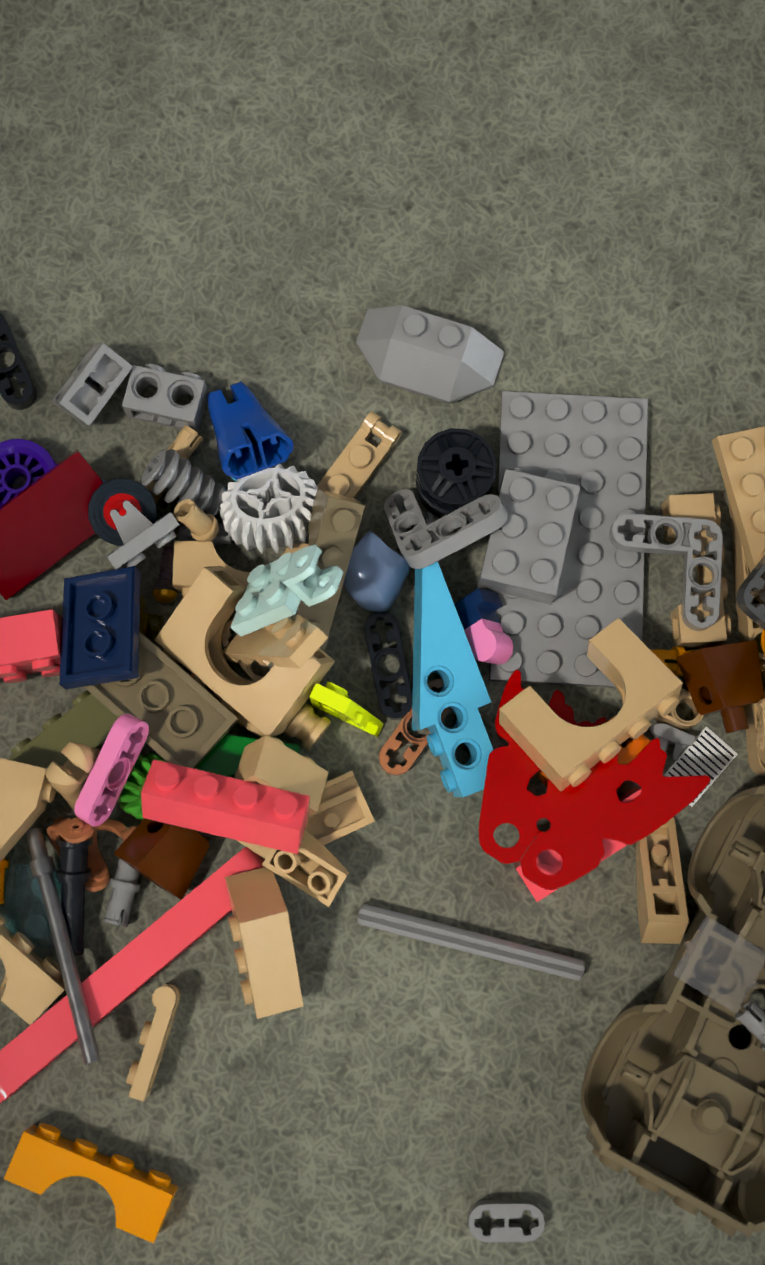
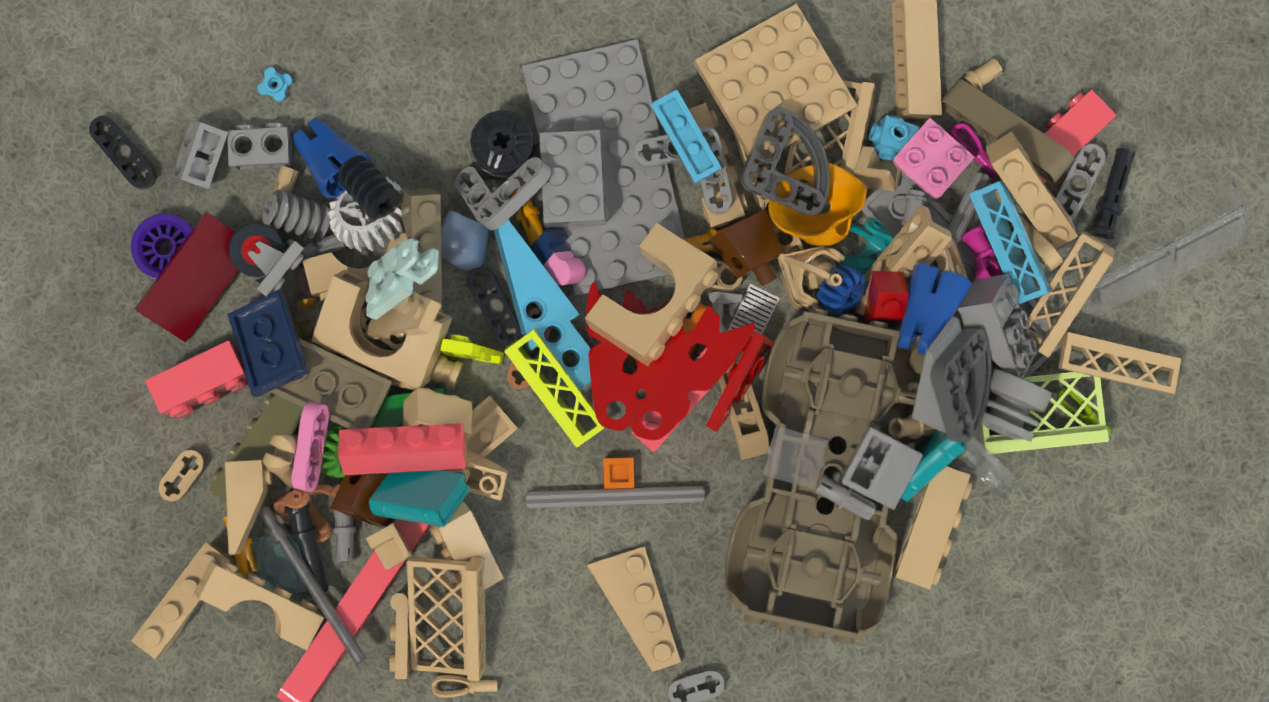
camera: 15 degrees left, 5 degrees up
(173, 924) = (390, 546): none -> tan panel
(202, 526) = (320, 242): tan pin -> none
(208, 341) = (280, 90): none -> medium azure plate
(225, 1130) = (472, 686): none -> tan piece
(229, 873) = (420, 496): none -> teal piece
(251, 1043) = (472, 611): none -> tan fence
(280, 474) = (368, 187): none -> black piece
(360, 458) = (425, 153): tan plate -> none
(423, 786) = (546, 390): none -> neon yellow fence
(427, 353) = (454, 53): light grey wedge -> none
(460, 571) = (529, 218): none -> light orange pin
(461, 1082) = (636, 600): none -> tan wing
(483, 914) = (618, 473): none -> orange plate
(671, 839) = (740, 378): none -> red wing
(684, 523) = (686, 136): none -> medium azure plate

